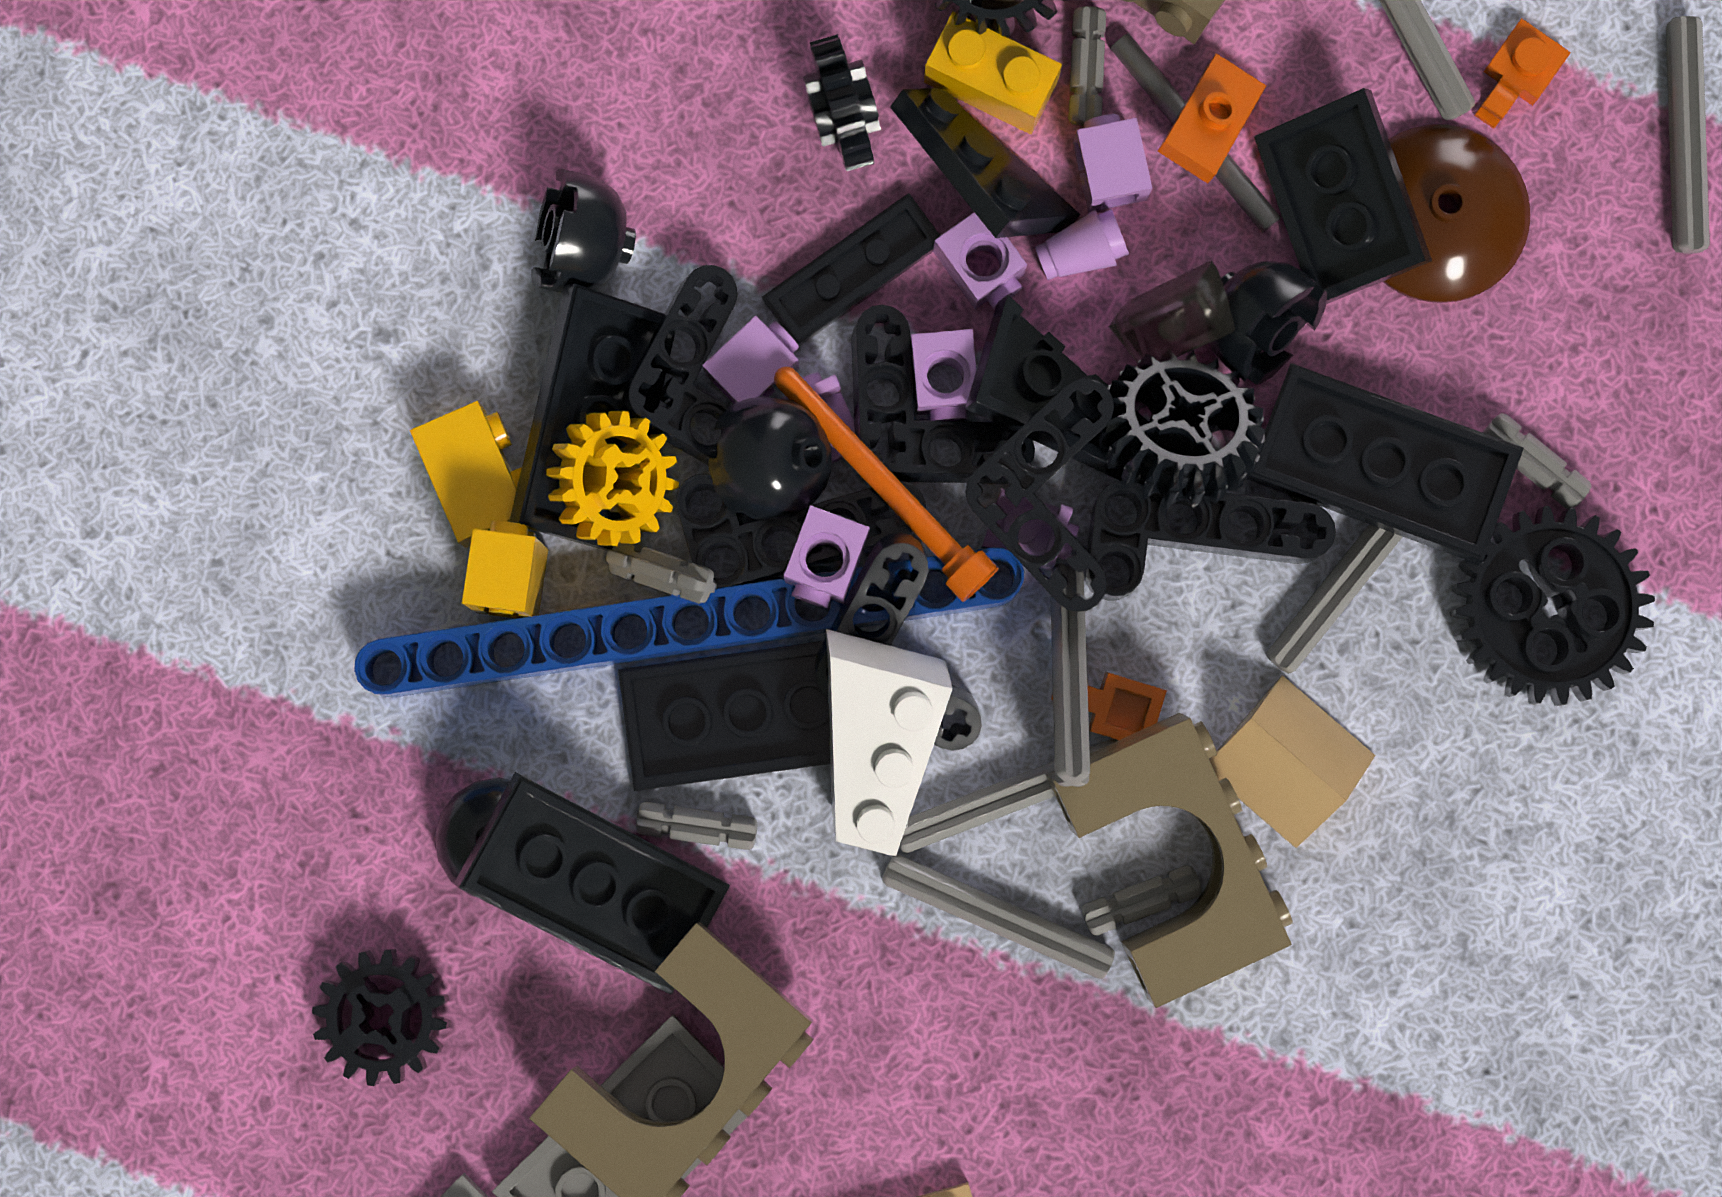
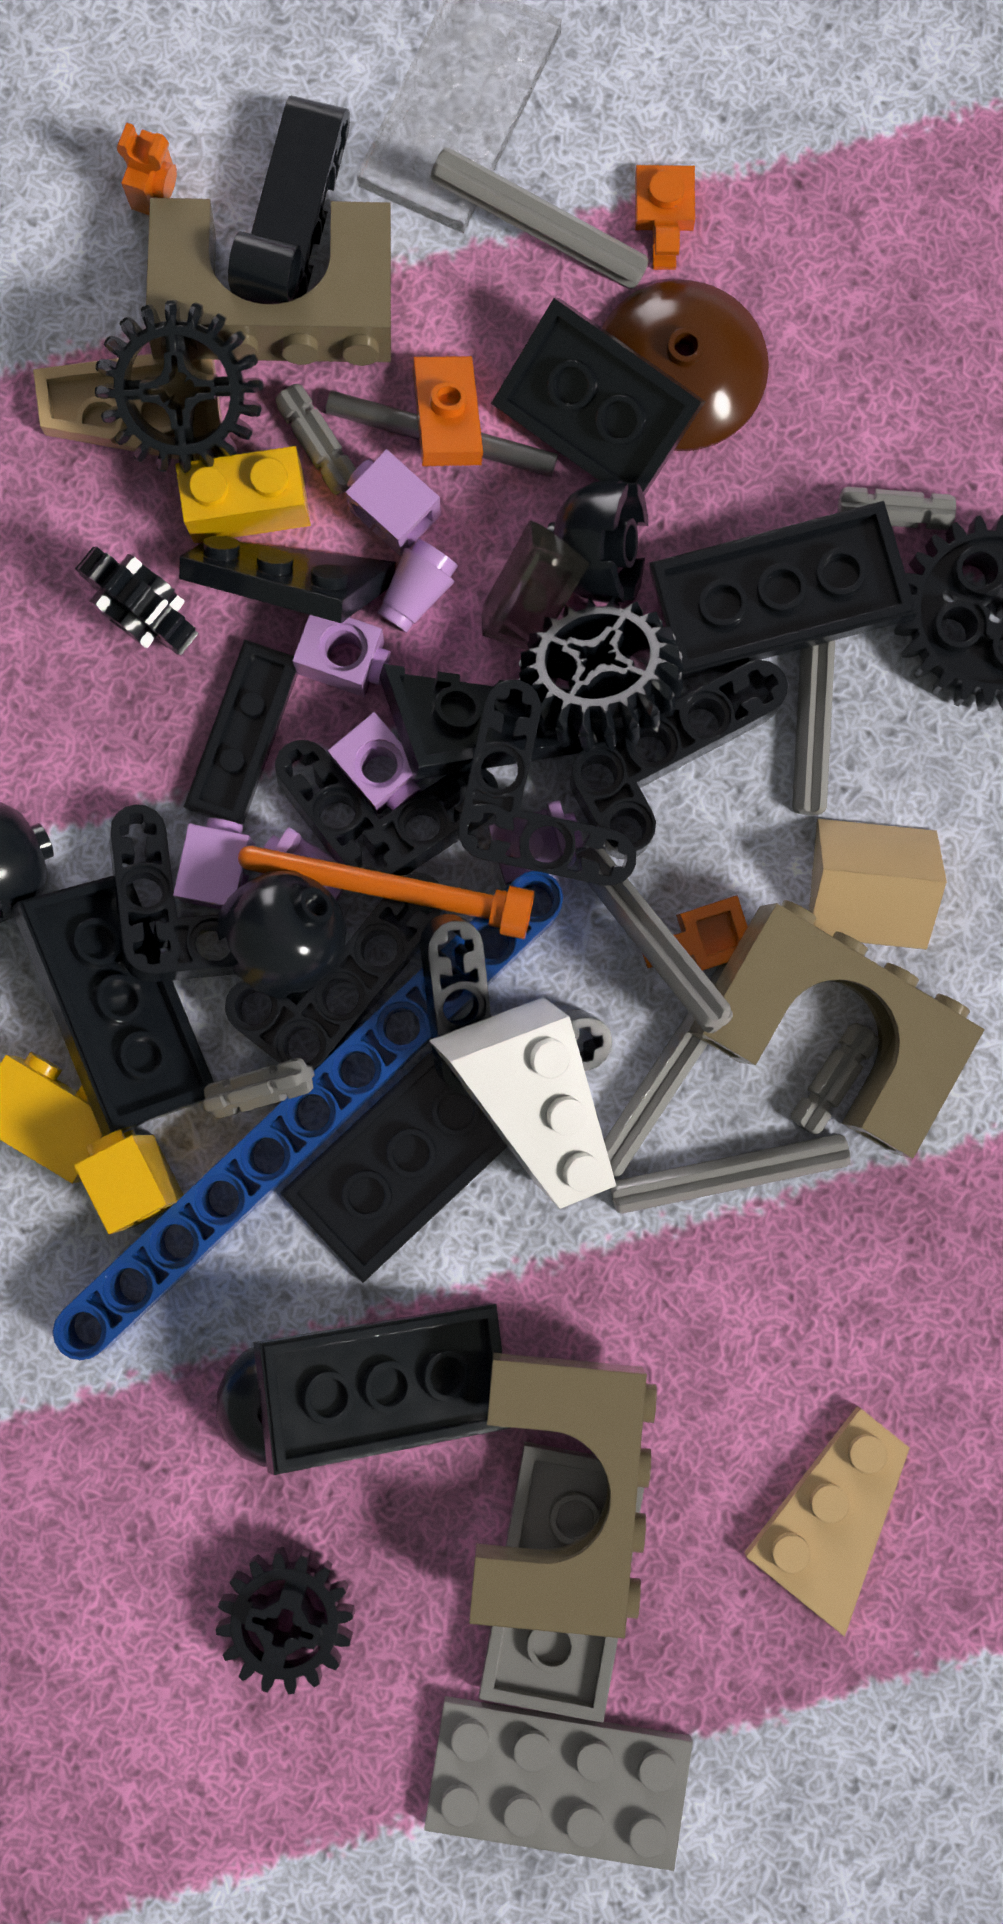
camera: 40 degrees left, 0 degrees up
(612, 478) = (144, 1053): yellow gear -> none
(696, 825) = (434, 1274): light grey axle -> none
(832, 530) = (386, 953): lavender brick -> none
(1687, 135) = (831, 169): light grey axle -> none

